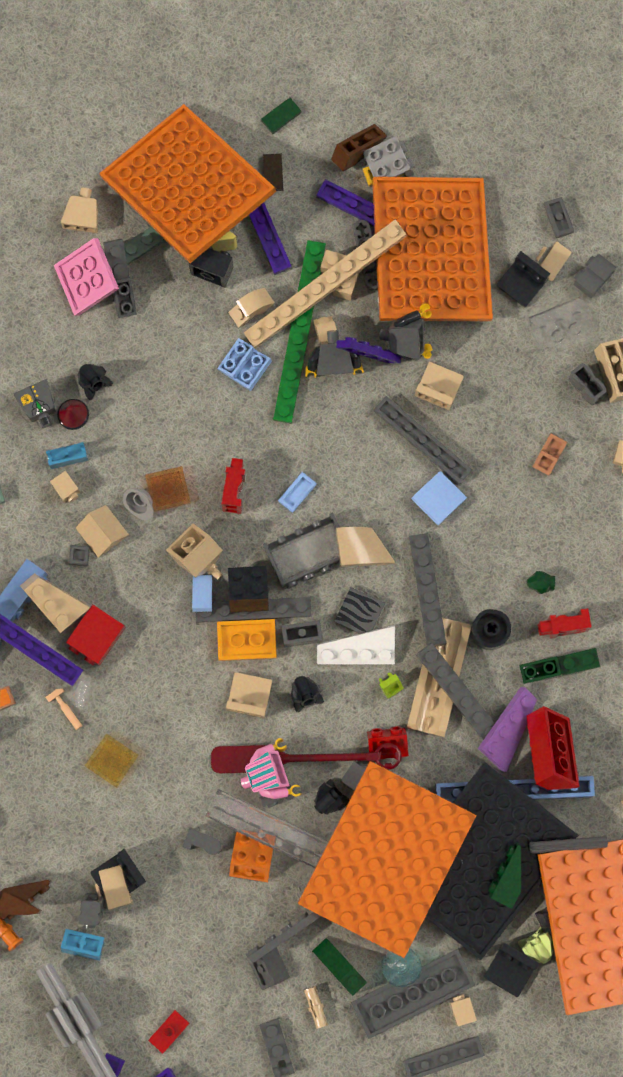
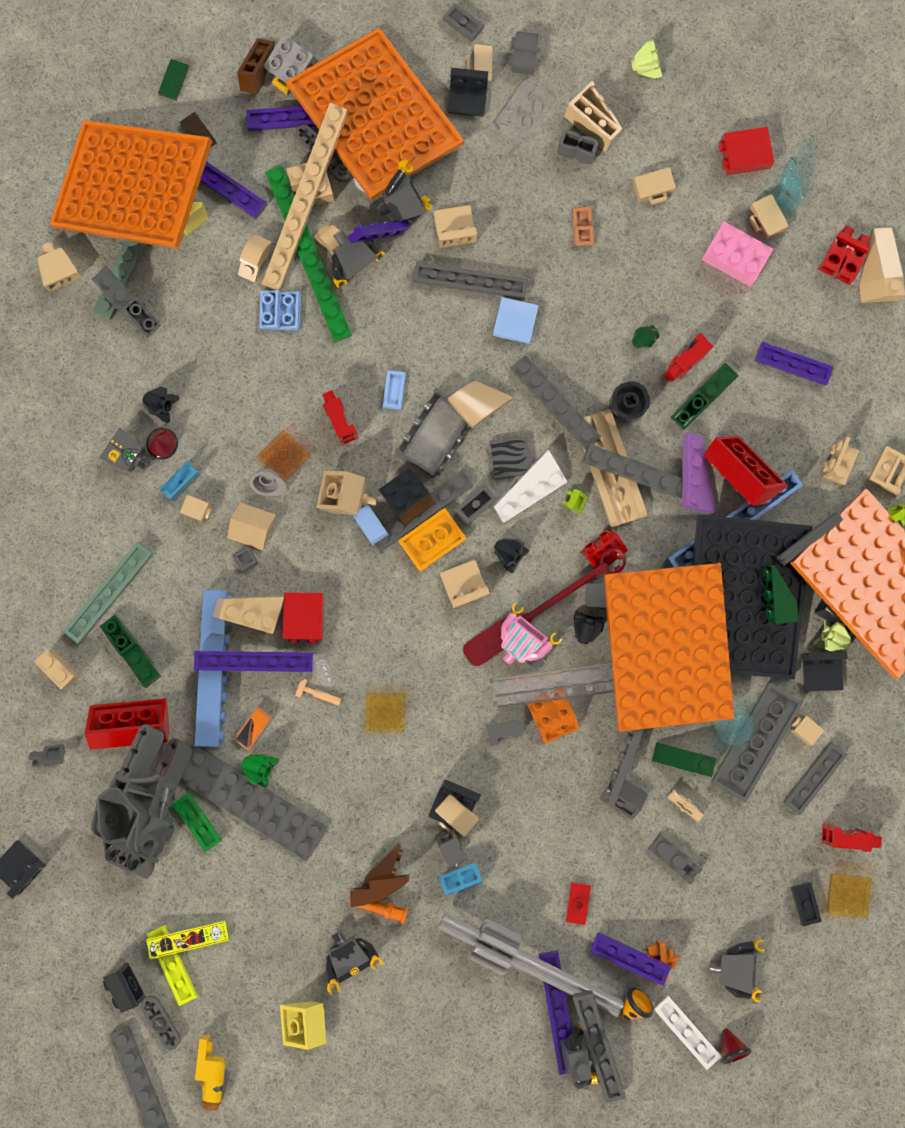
camera: 35 degrees left, 5 degrees up
(86, 277) = (96, 318): bright pink plate -> none
(213, 267) = (199, 243): black brick -> none

